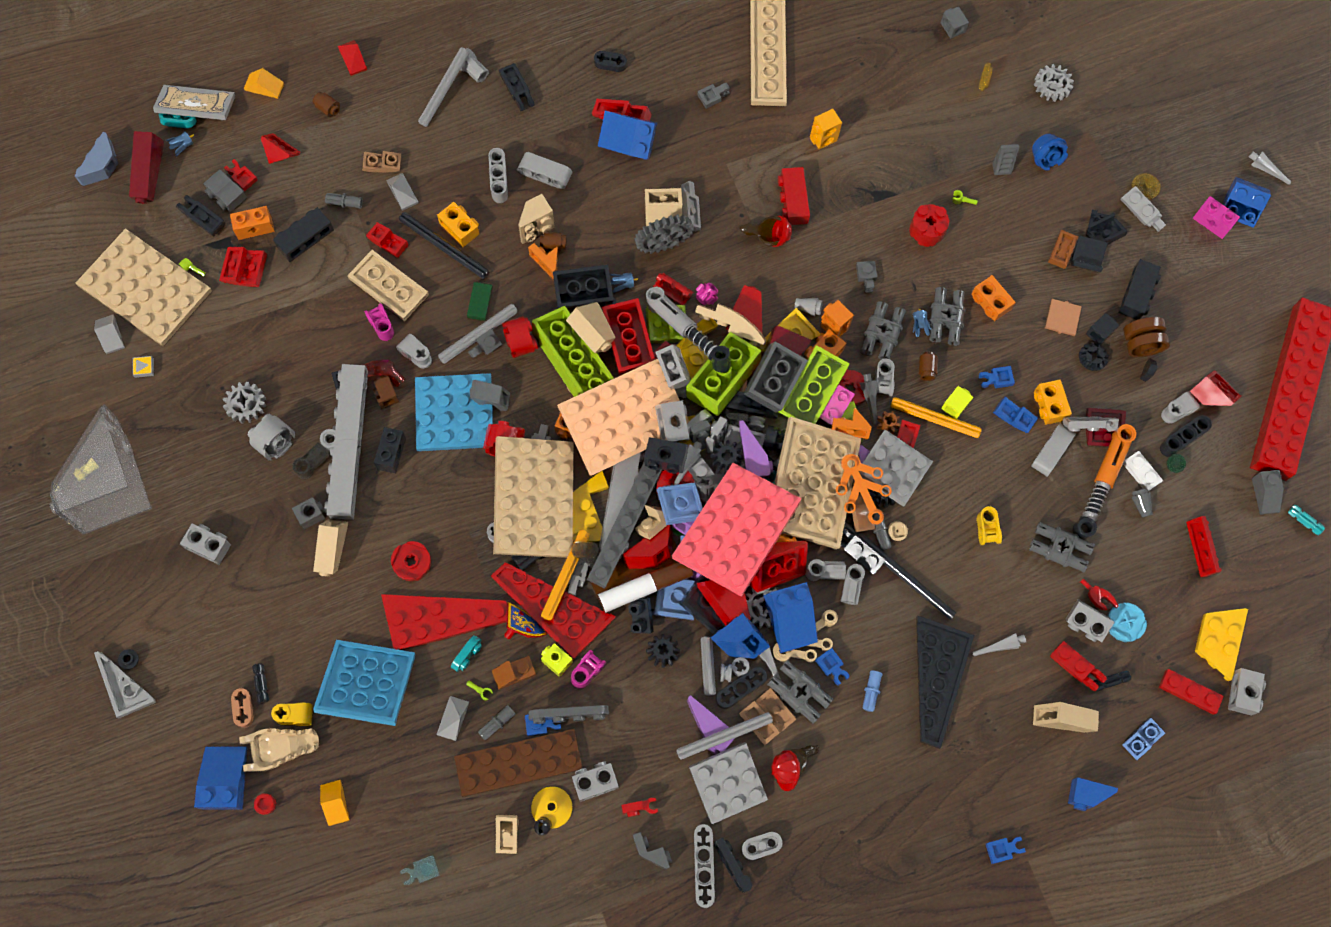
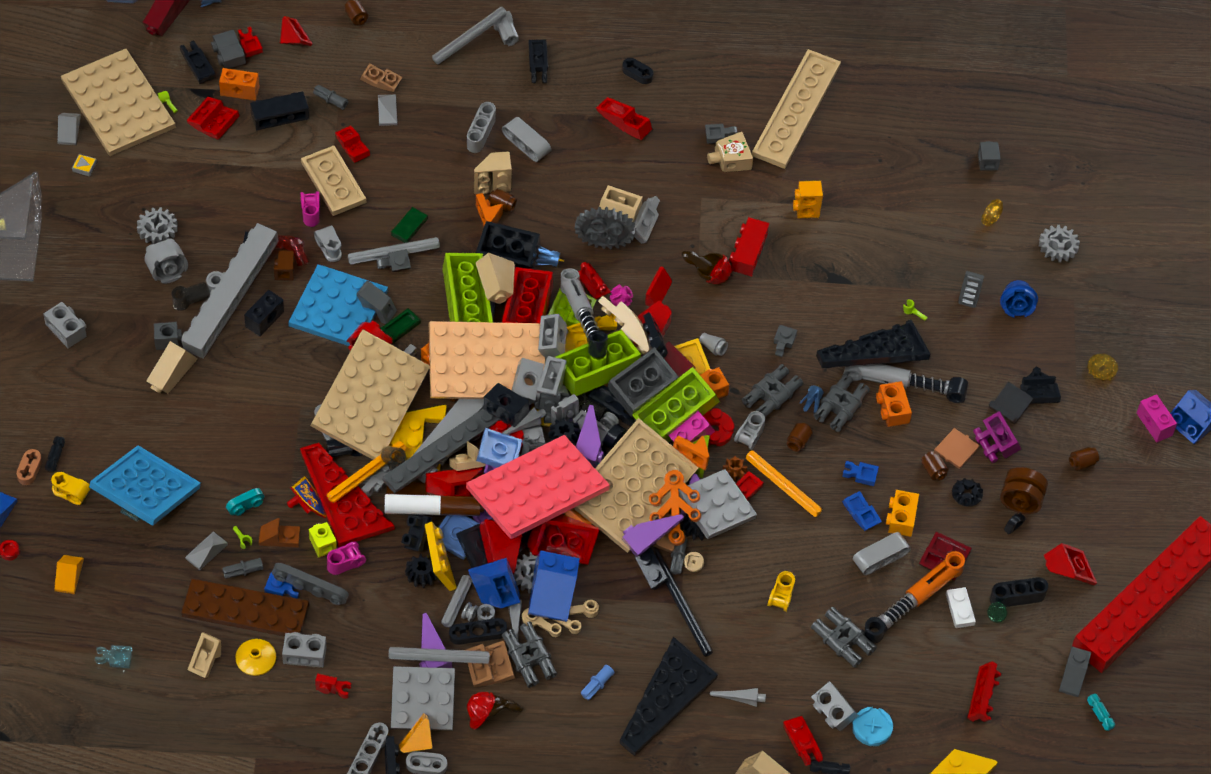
camera: 25 degrees right, 15 degrees down
(276, 746) = (43, 507): tan animal -> none
(415, 571) = (238, 419): red plate -> none
(425, 620) = (226, 463): red wing -> none
(444, 245) = (401, 167): black axle -> none
(455, 226) = (423, 154): light orange brick -> none
(518, 336) = (427, 264): red brick -> none
(520, 407) = (401, 325): none -> dark green tile
(546, 827) = (242, 666): black hinge -> none
(627, 135) = (619, 136): blue slope -> none
(658, 856) = (325, 729): dark grey slope -> none
(673, 631) = (439, 557): none -> yellow wing
(694, 409) = (552, 376): none -> light grey slope
(734, 268) = (658, 287): none -> red slope
(735, 110) = (732, 154): none -> tan torso
(742, 825) = (418, 737): none -> light orange slope
(764, 327) = (655, 337): none -> black hinge
(827, 570) = (608, 566): light grey piece -> none
(831, 663) = (571, 645): blue plate -> none
(836, 318) = (730, 361): orange brick -> none
(852, 586) = (626, 588): light grey piece -> none
(853, 528) = (648, 533): none -> medium lavender slope
(869, 389) = (730, 433): dark grey piece -> none
(929, 225) = (865, 316): red brick -> none
(947, 276) = (954, 389): none -> piece
(957, 402) = (809, 476): neon yellow brick -> none
(959, 248) = (879, 347): none -> black wing
(1056, 344) = (934, 466): none -> reddish brown brick
(1063, 249) = (987, 389): dark orange plate -> none
(1090, 423) = (929, 543): light grey hinge -> none
(1096, 594) = (857, 690): red hand -> none
(1099, 290) = (1002, 436): none -> magenta brick
(1102, 329) = (988, 470): black brick -> none
(1140, 290) = (1045, 449): black brick -> none
(1143, 209) = (1087, 384): light grey hinge -> none
(1143, 502) = (945, 630): dark grey cone -> none
(1174, 281) = (1083, 458): none -> reddish brown brick
(1179, 408) = (1029, 566): light grey piece -> none

